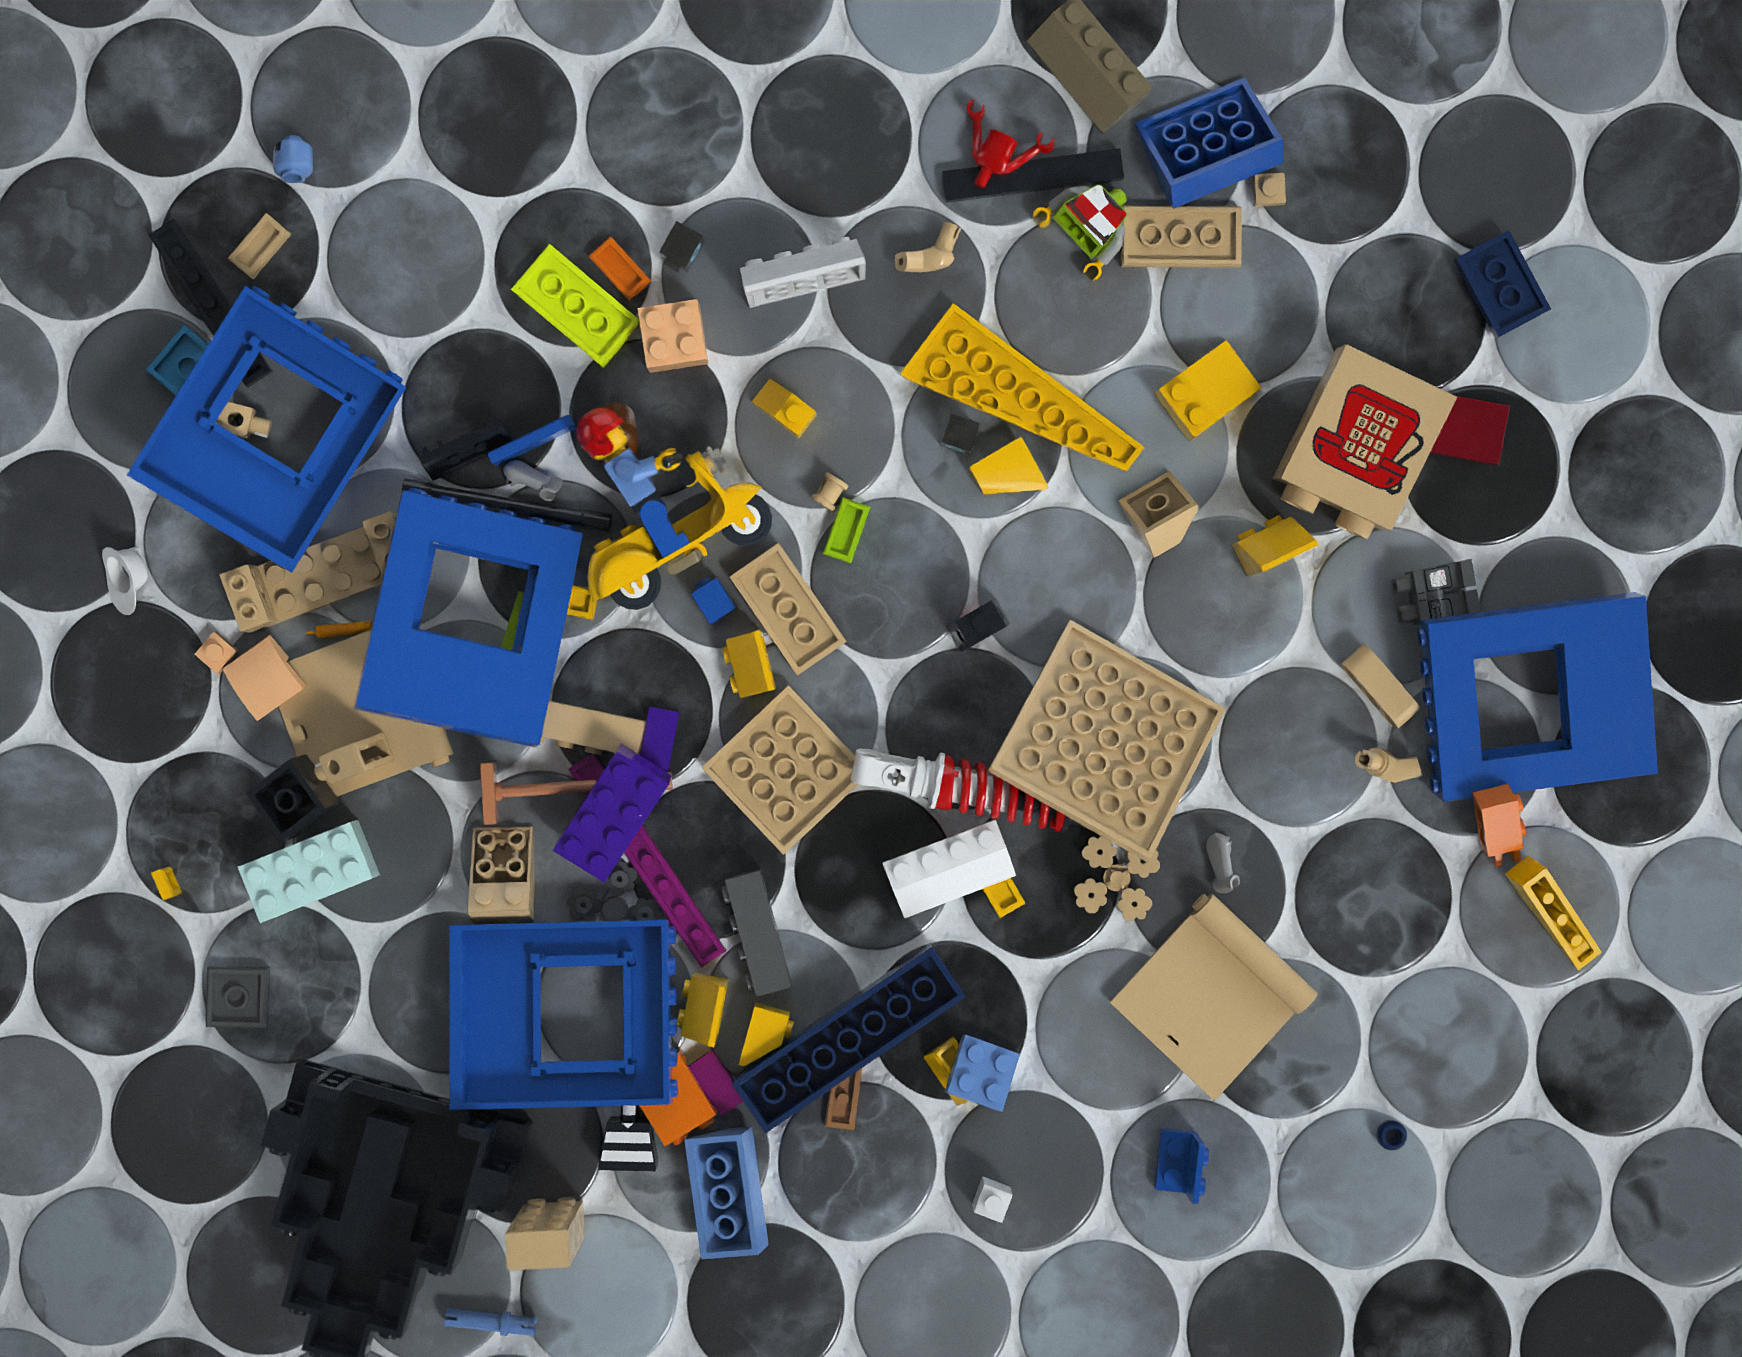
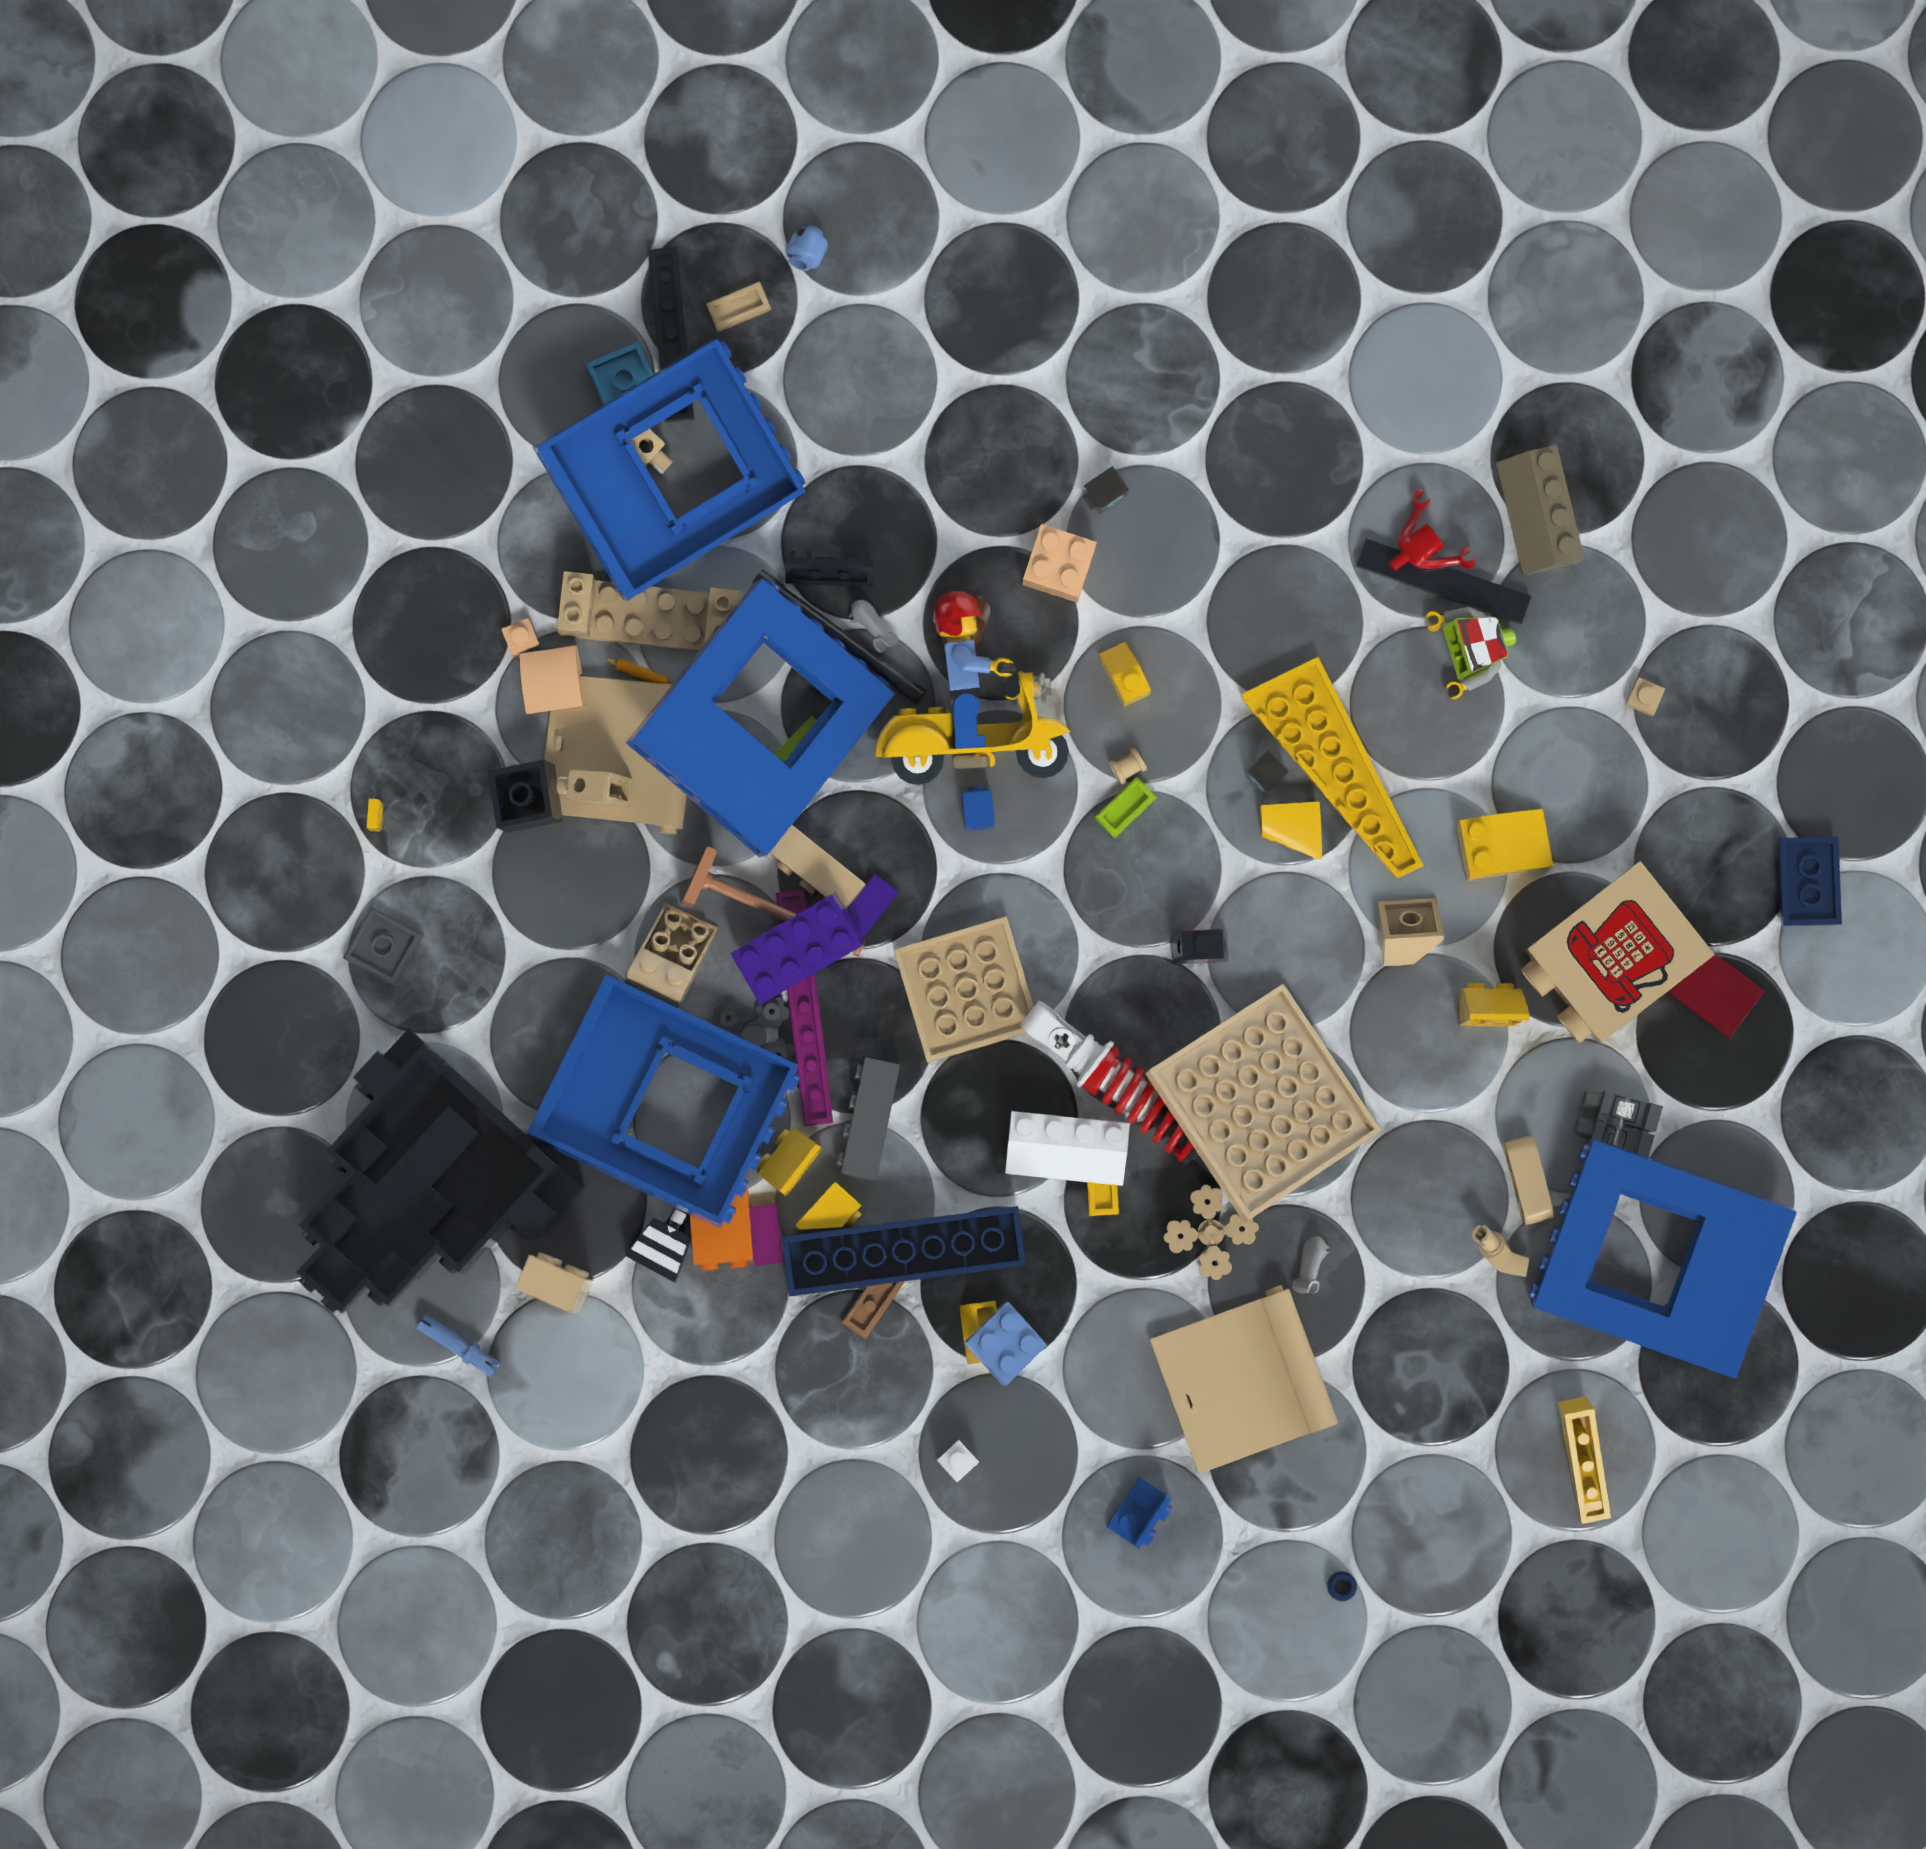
camera: 20 degrees right, 5 degrees down
(125, 574) = (476, 530): white piece -> none
(308, 871) = (504, 867): light aqua brick -> none
(532, 440) = (890, 591): blue tile -> none
(576, 305) = (987, 495): neon yellow tile -> none
(581, 603) = (861, 755): yellow tile -> none
(620, 269) = (1041, 482): orange tile -> none
(726, 1193) = (726, 1334): medium blue slope -> none
(749, 664) = (982, 880): yellow slope -> none
(788, 609) = (1039, 850): tan plate -> none
(803, 272) = (1200, 565): white slope -> none
(932, 258) = (1320, 609): tan arm -> none
(1182, 236) = (1547, 699): tan tile -> none
(1210, 142) = (1612, 630): blue slope -> none
(1499, 822) = (1573, 1352): orange hinge -> none

